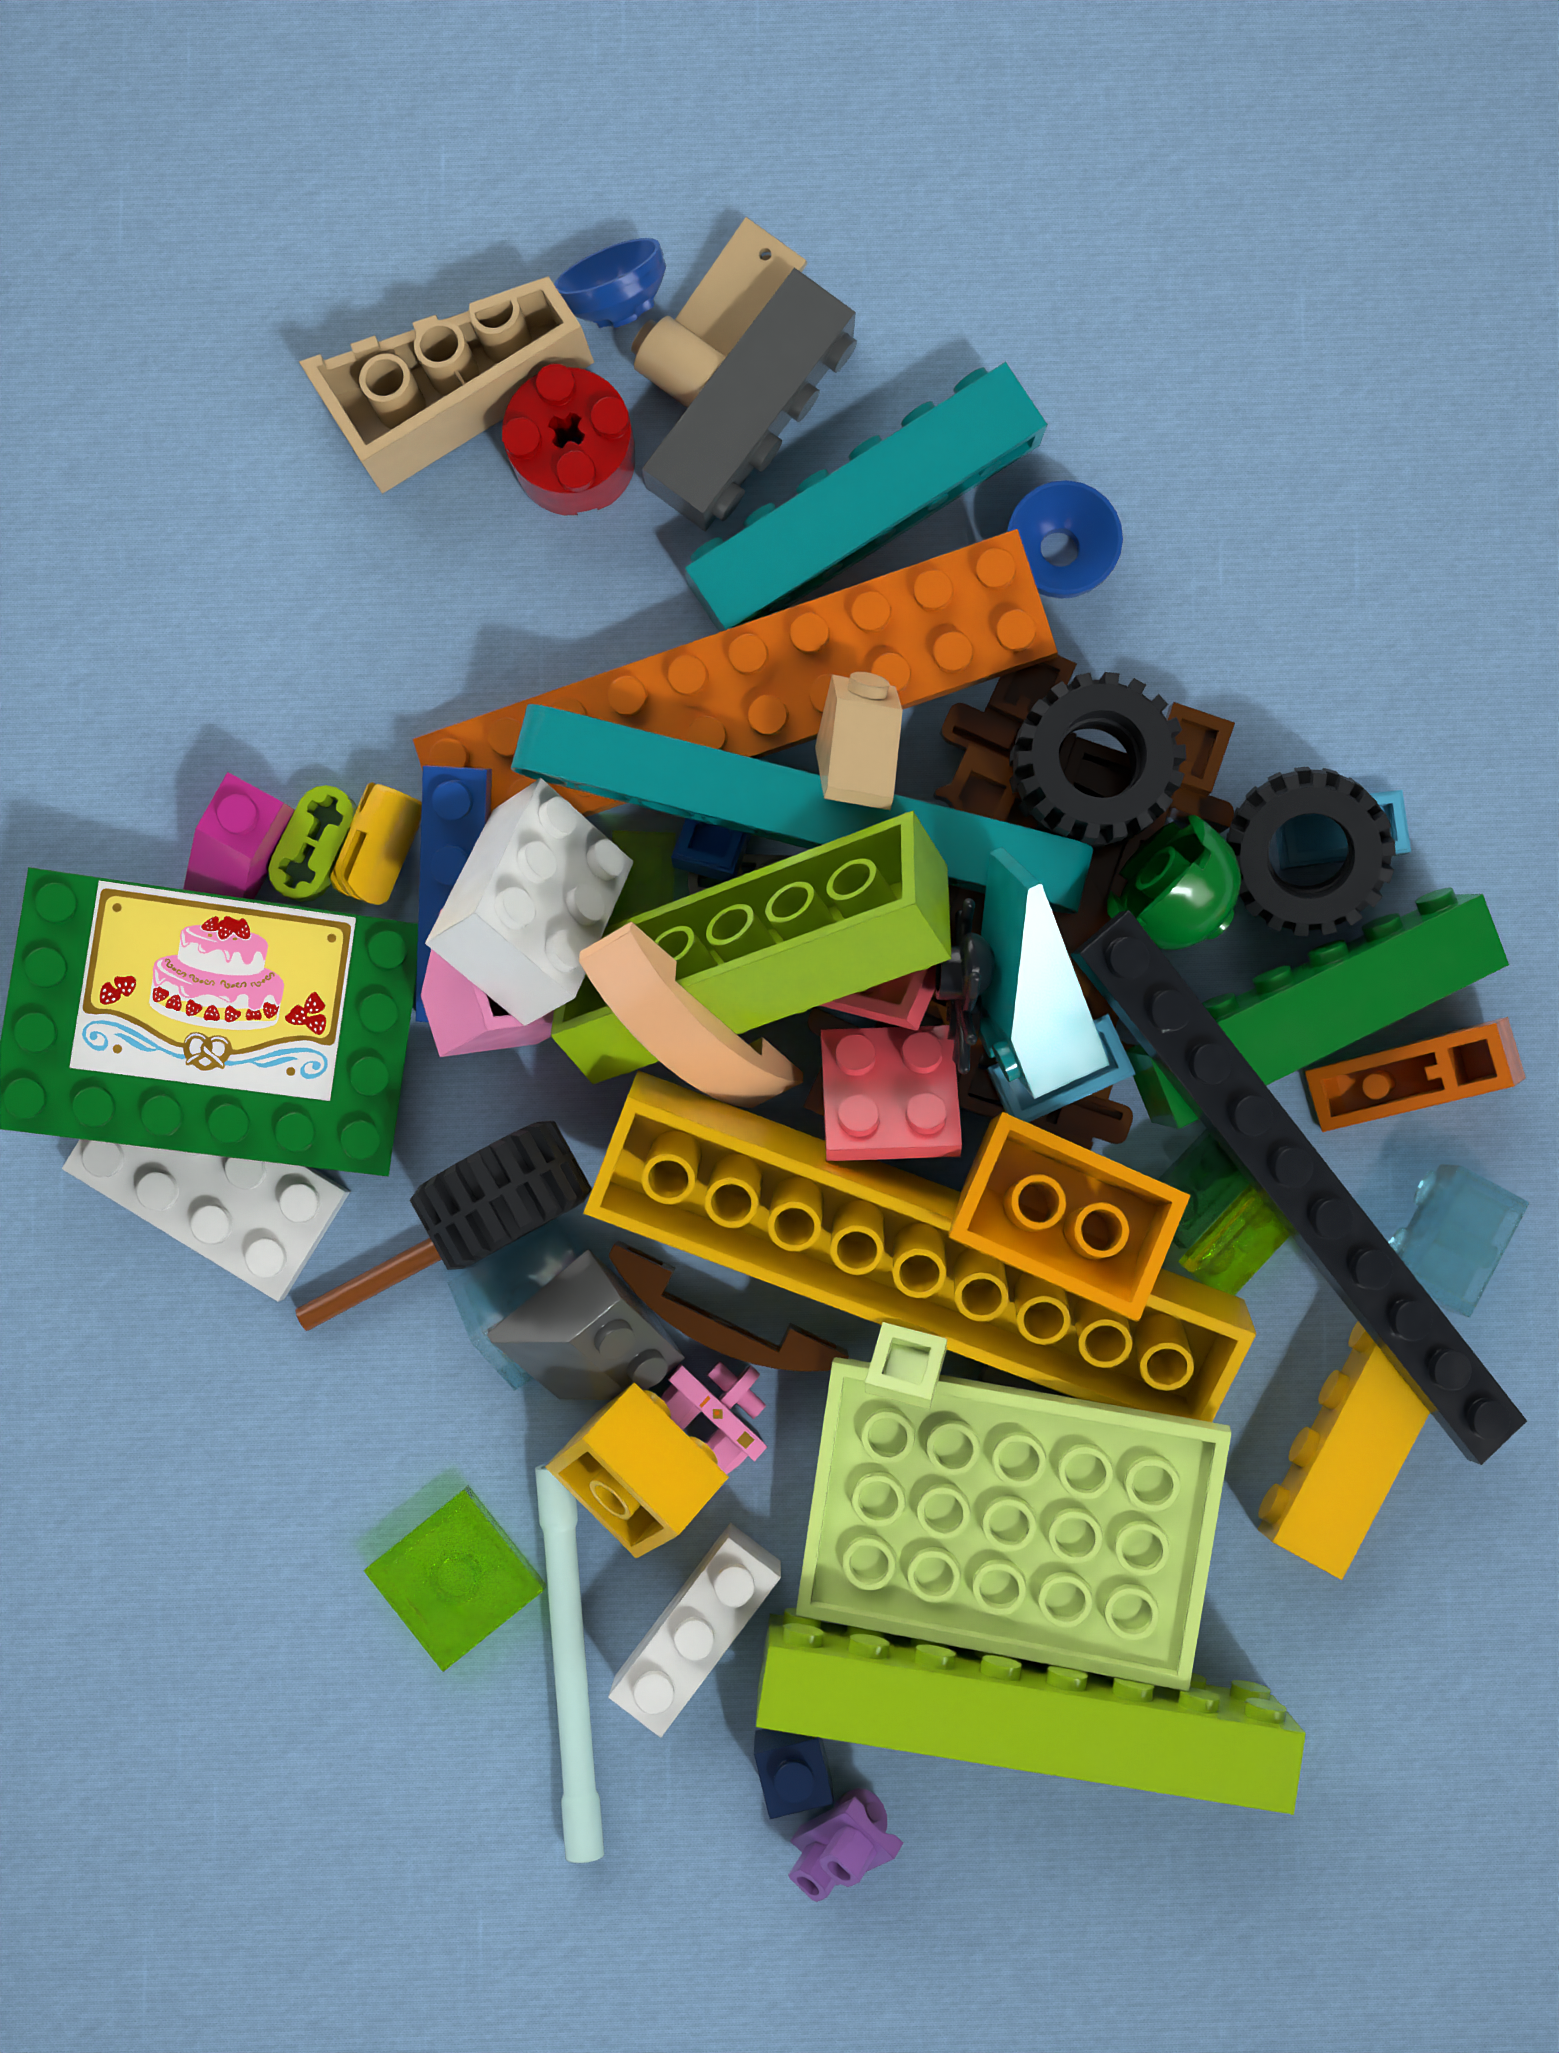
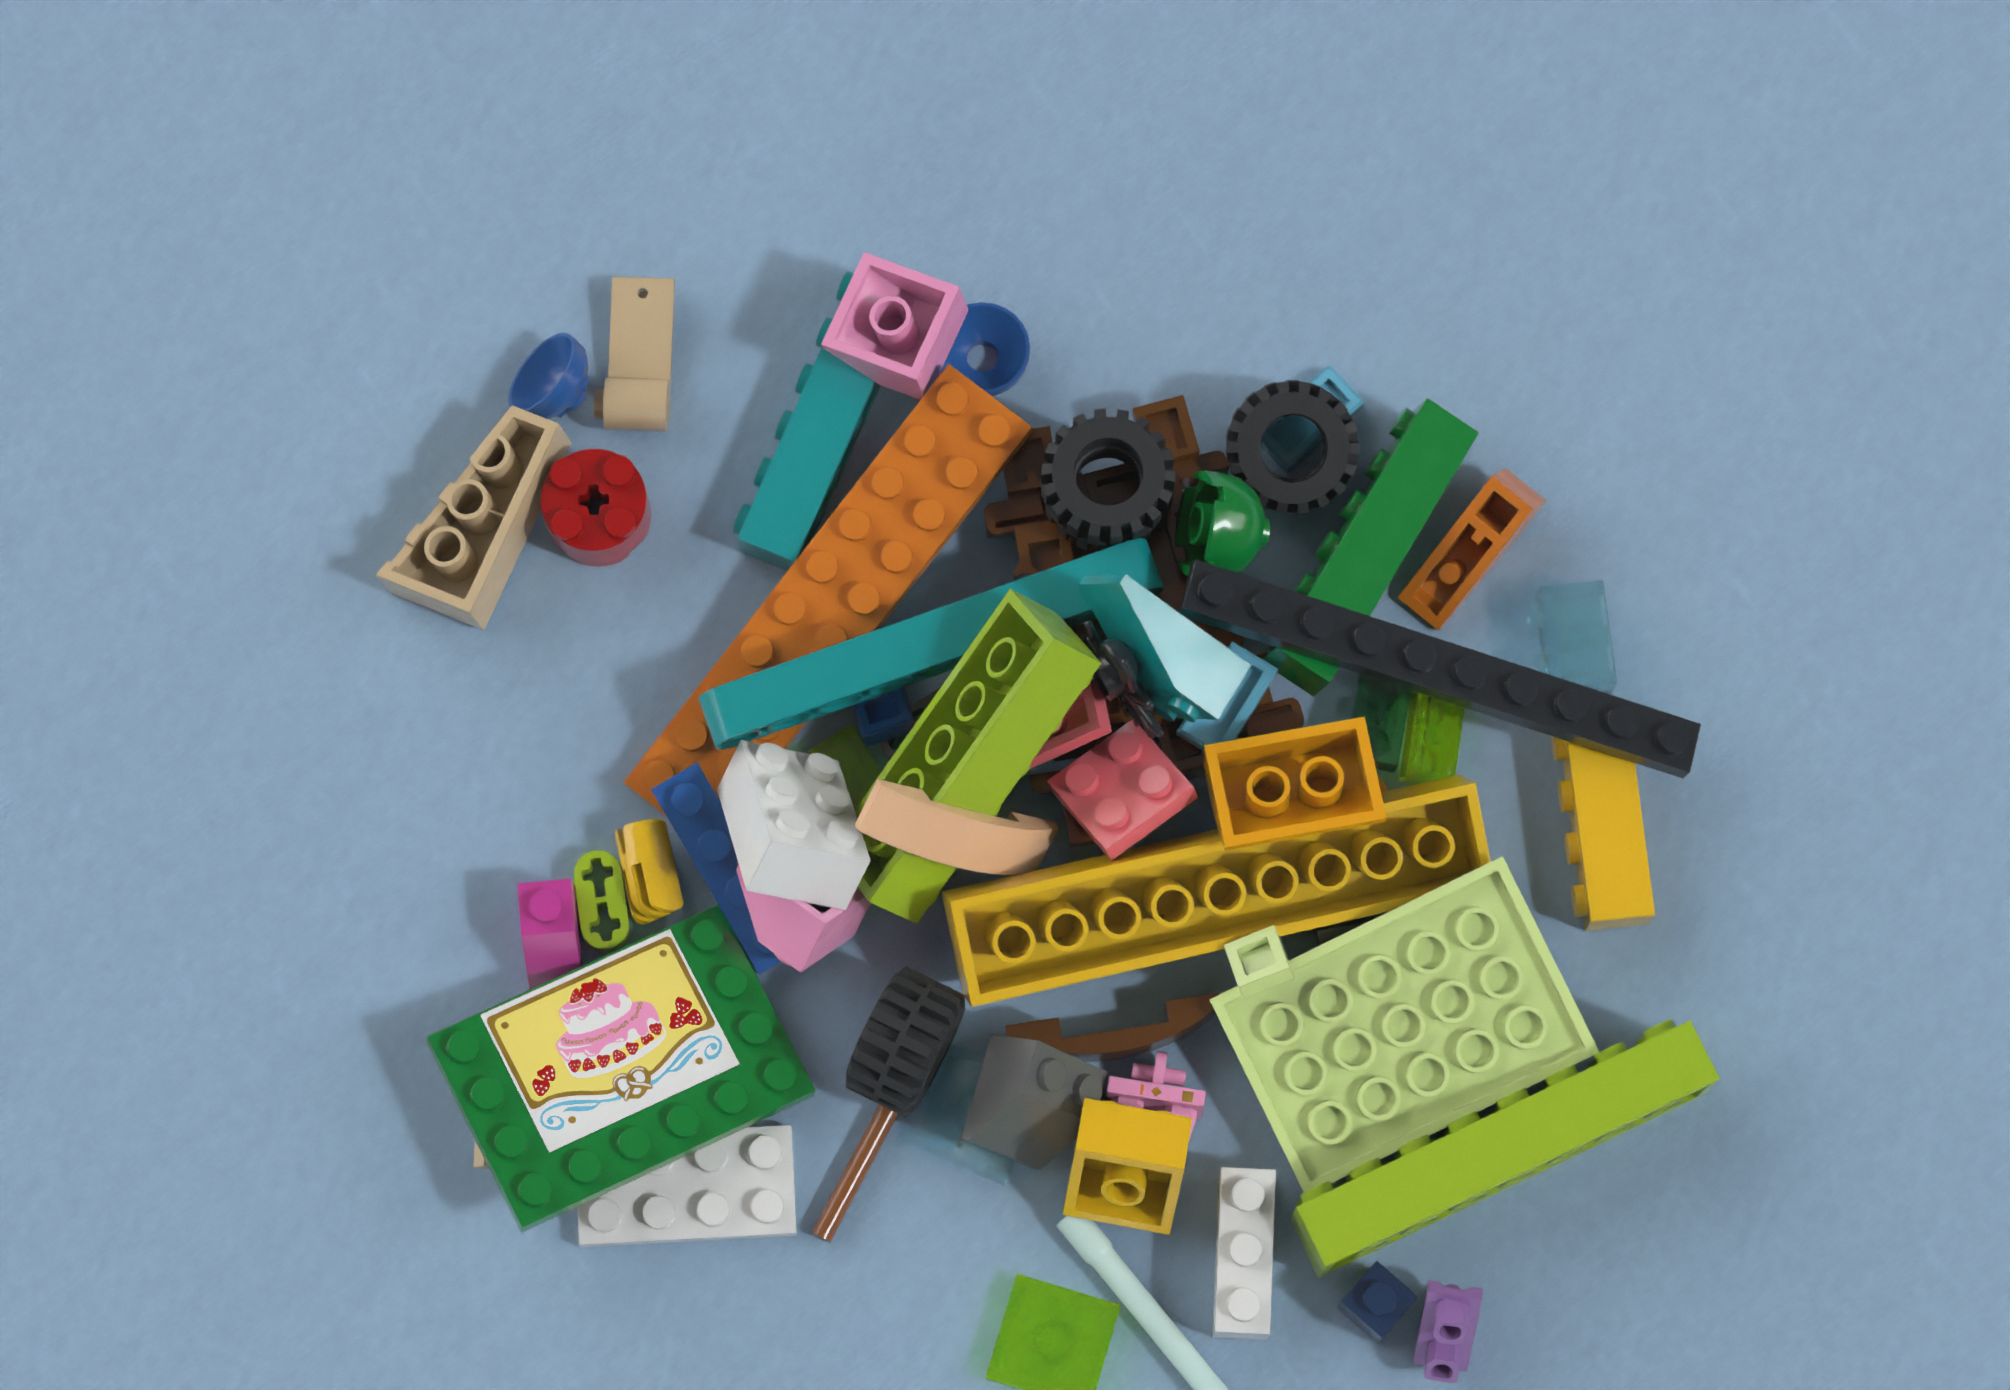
camera: 35 degrees left, 10 degrees down
(751, 400) = (701, 398): dark grey brick -> none
(859, 740) = (940, 569): tan slope -> none
(992, 451) = (896, 325): none -> bright pink slope

